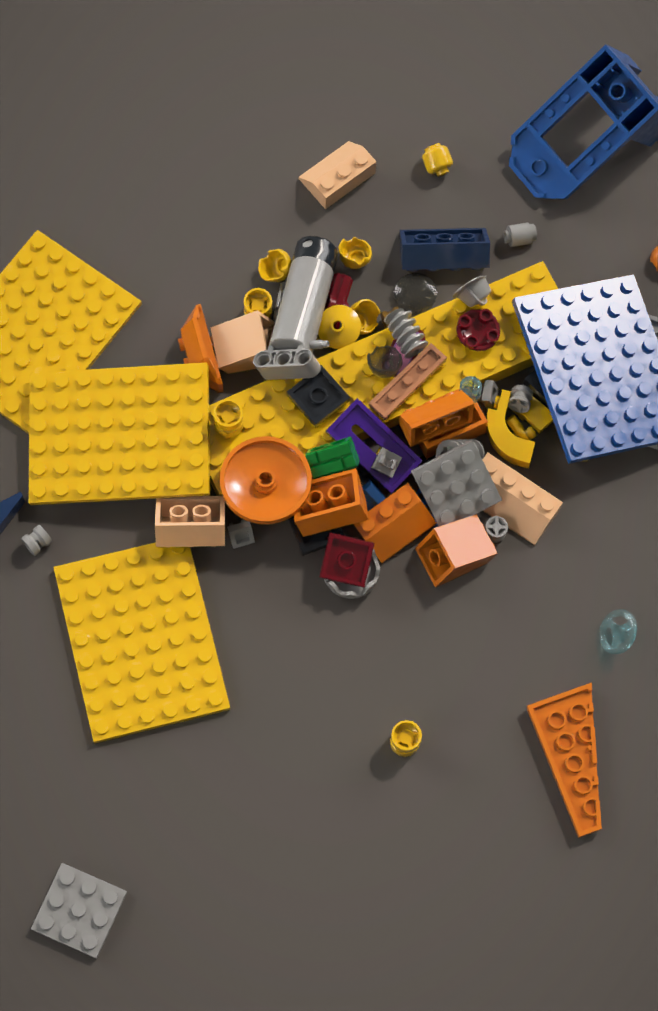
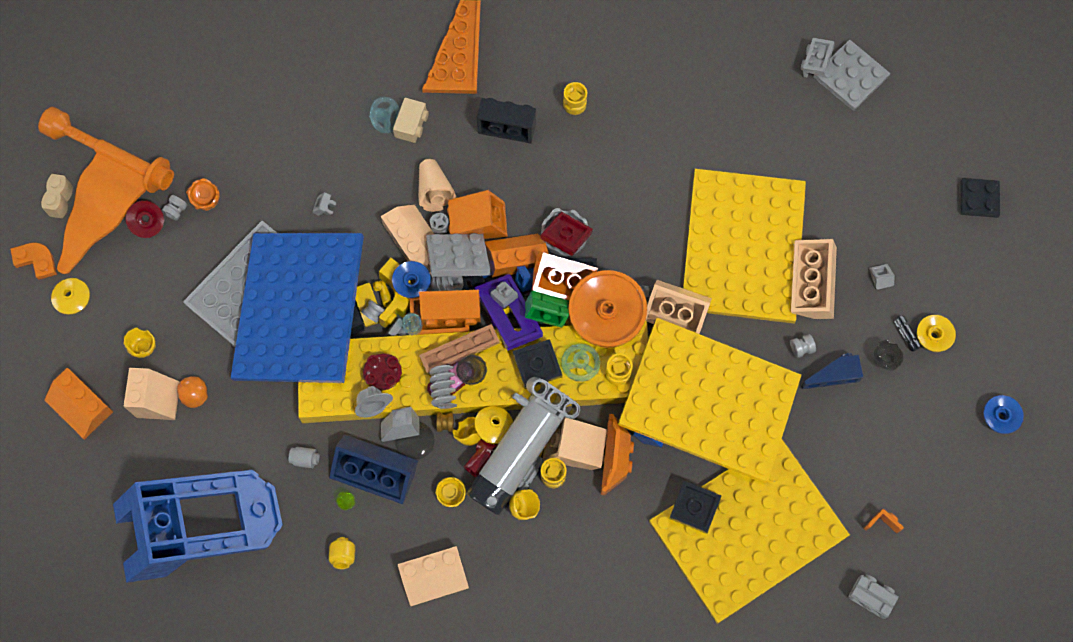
camera: 155 degrees left, 0 degrees up
(46, 619) = (814, 278): none -> light nougat slope
(97, 322) = (695, 507): none -> black plate
(128, 909) = (817, 57): none -> light grey bracket
(273, 409) = (584, 356): none -> clear light blue piece
(434, 295) = (400, 424): none -> light grey slope
(457, 209) = (345, 500): none -> clear neon green plate
(473, 674) = (506, 120): none -> black brick
(494, 429) = (411, 271): none -> blue dish
(523, 568) = (433, 187): none -> light nougat cone
(586, 639) = (410, 120): none -> tan brick
(637, 501) = (322, 203): none -> light grey tile

